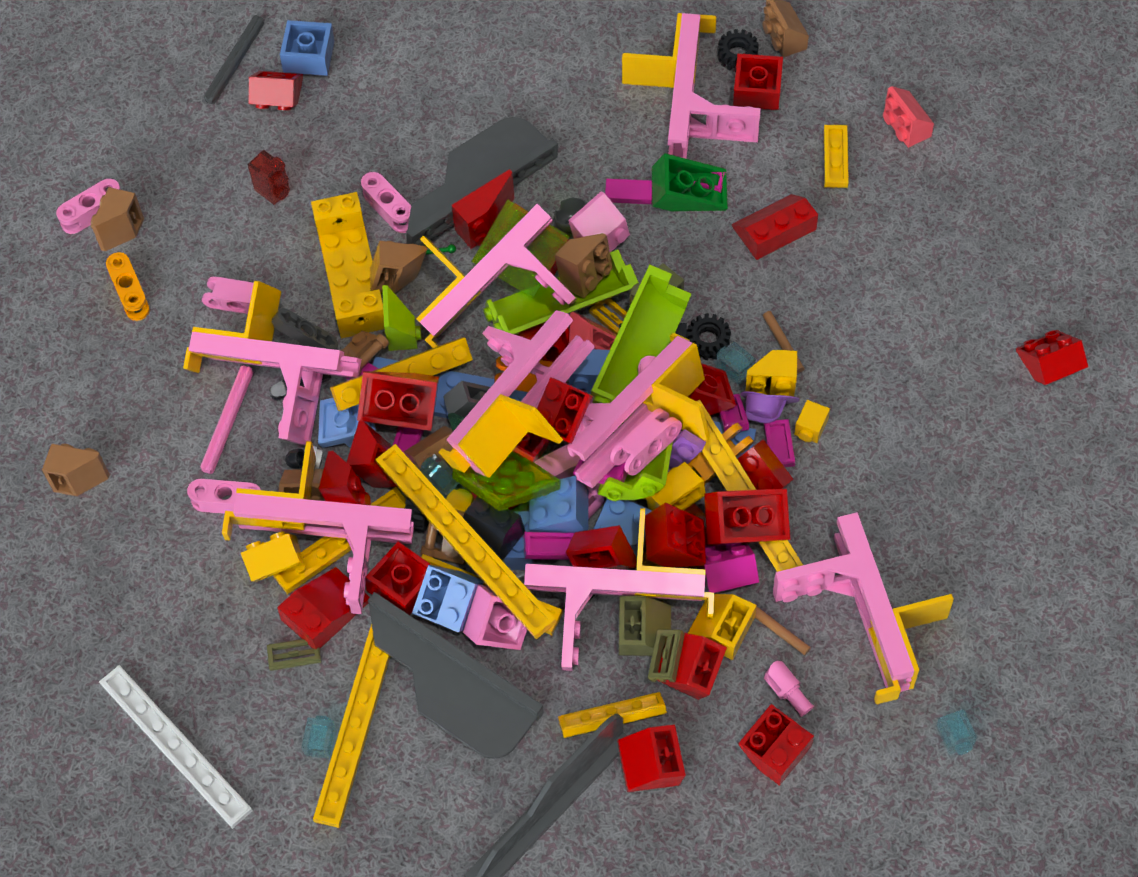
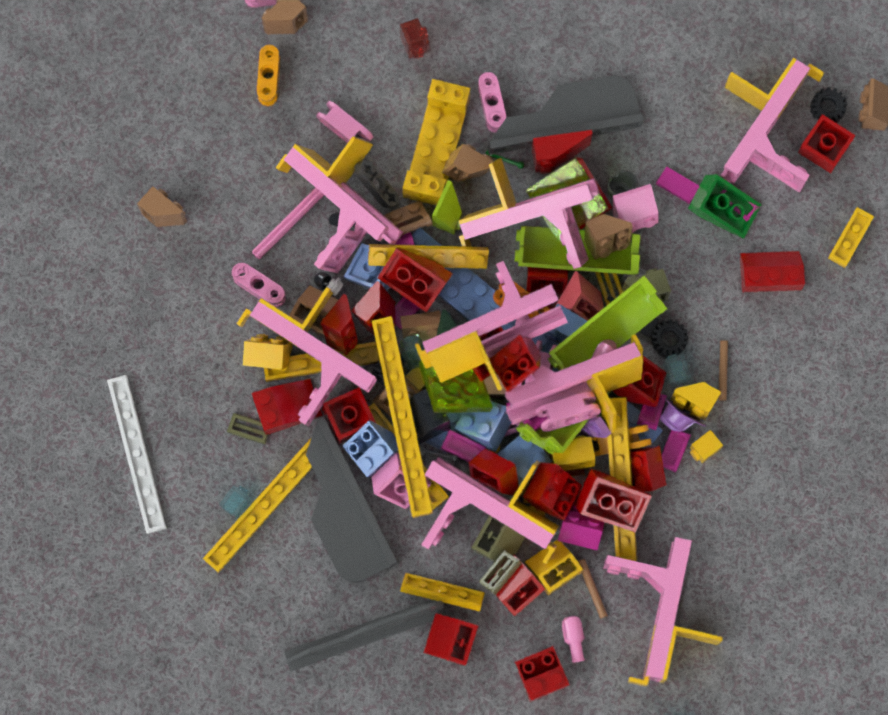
camera: 25 degrees right, 15 degrees up
(464, 397) = (467, 303): dark grey slope -> none

